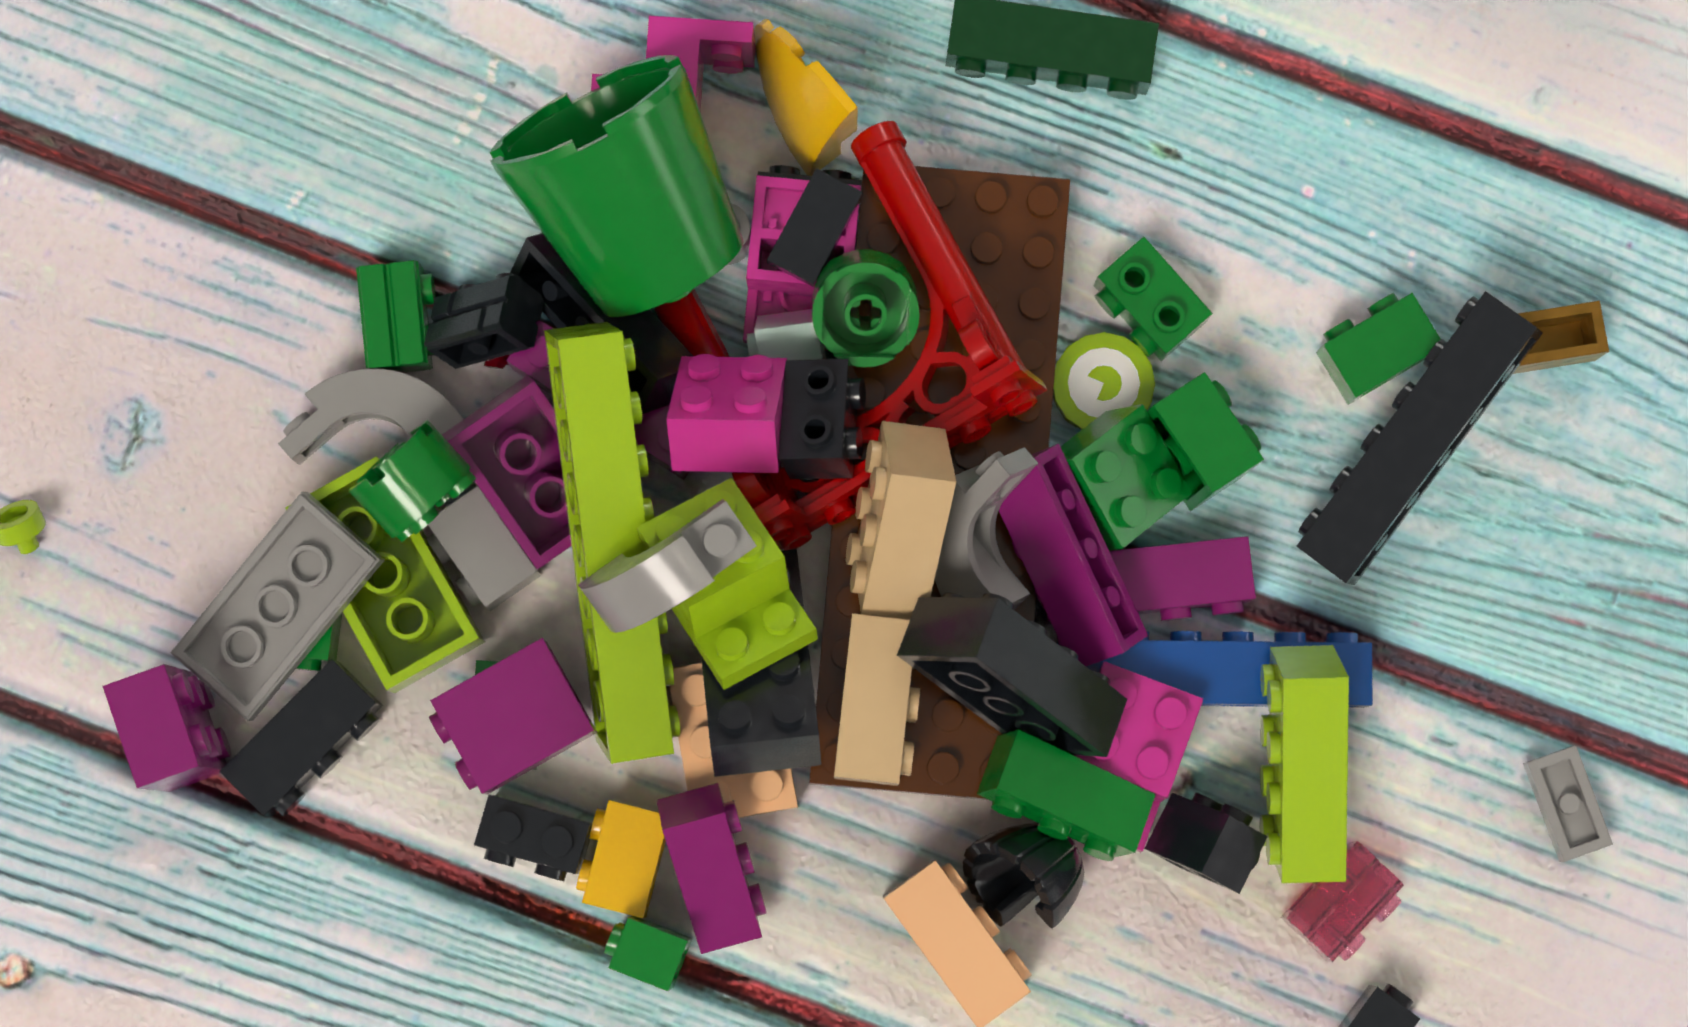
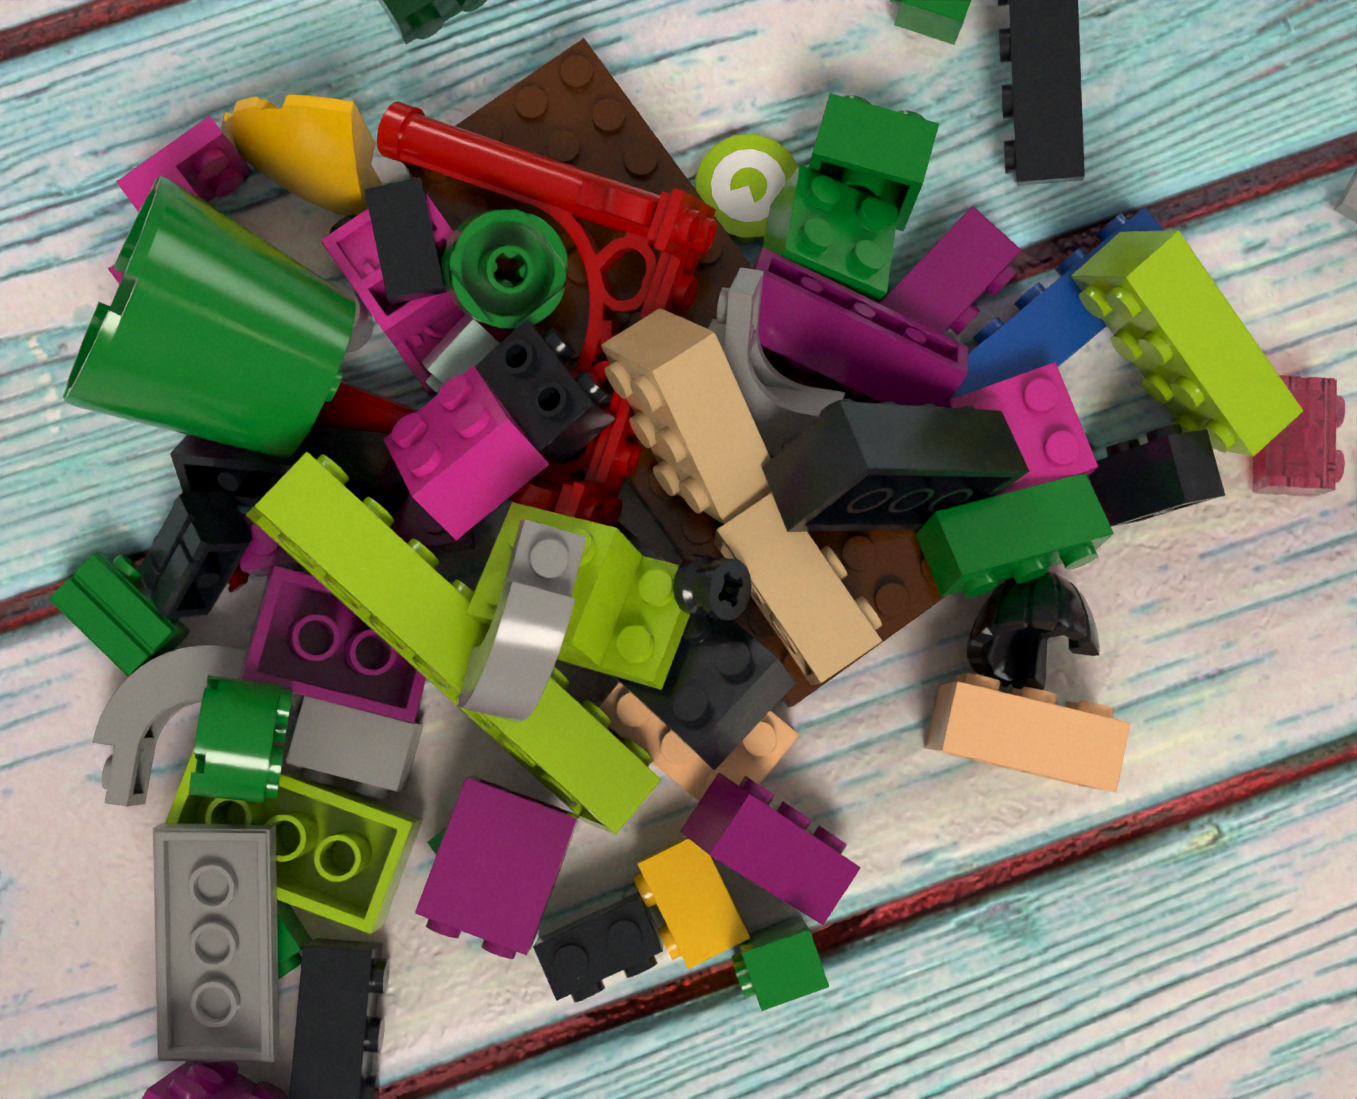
camera: 40 degrees left, 0 degrees up
(816, 649) = (712, 587): none -> black wheel
(1150, 300) = (729, 86): green brick -> none

